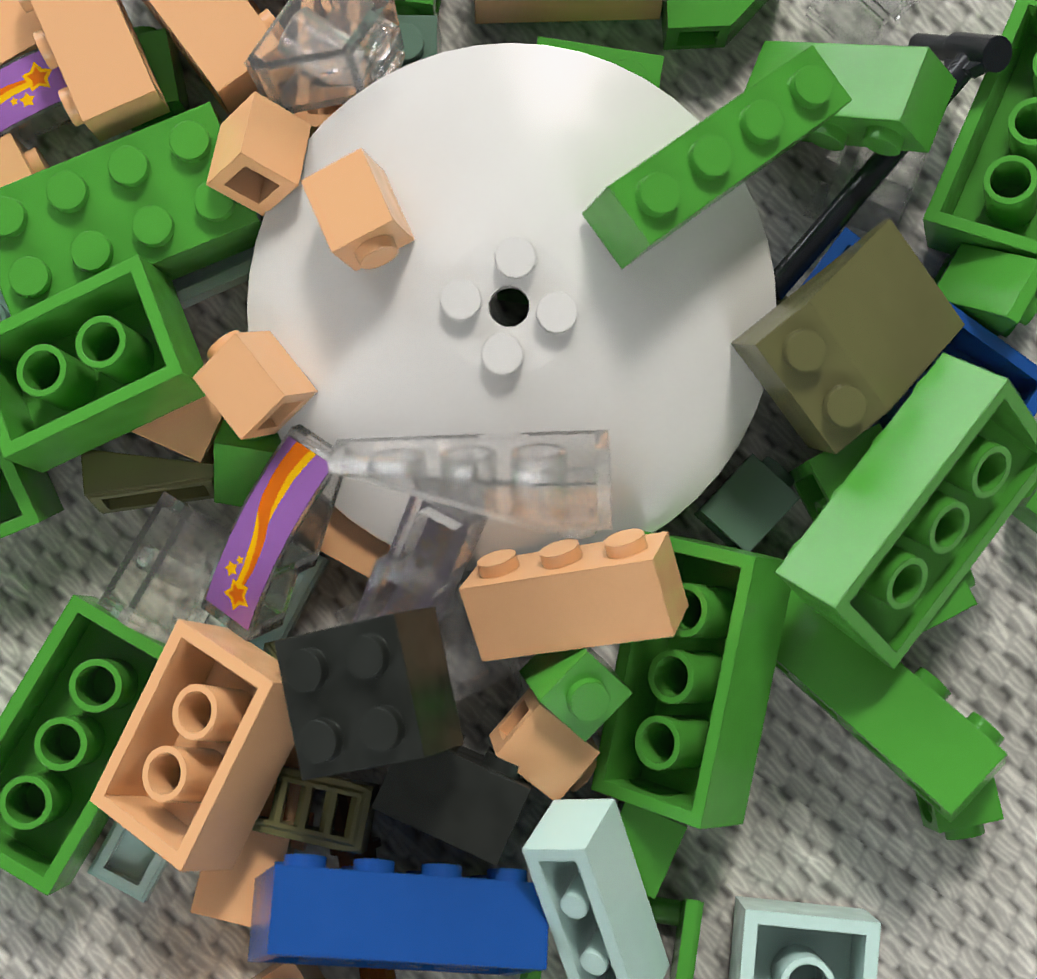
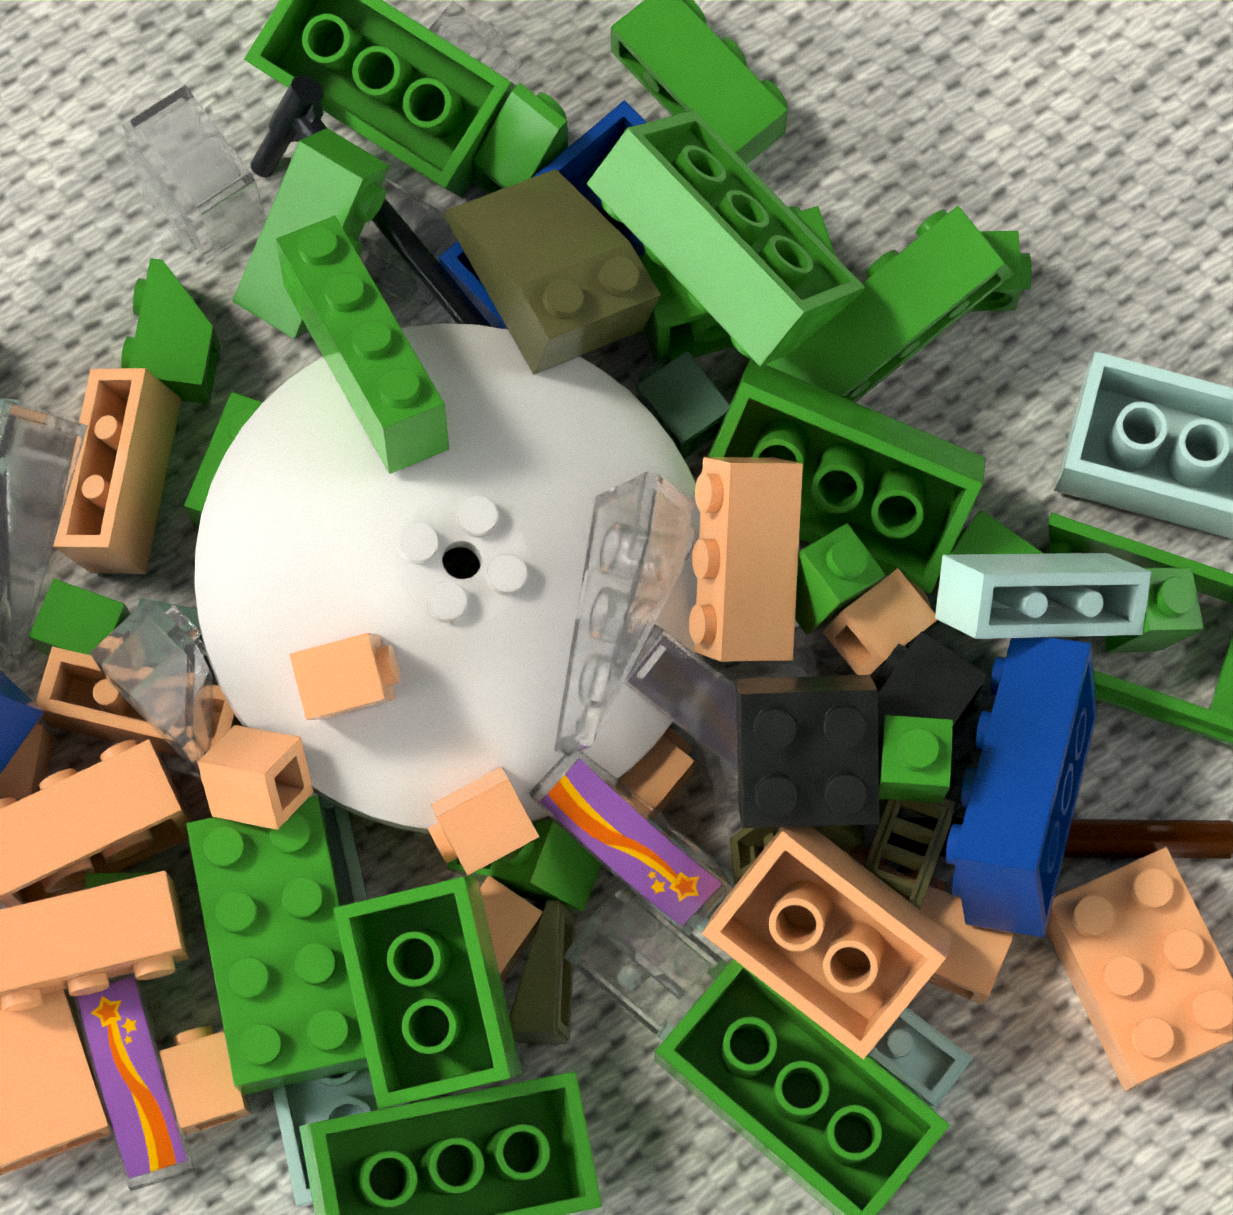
camera: 85 degrees left, 10 degrees down
(379, 806) = (914, 758): none -> bright green brick

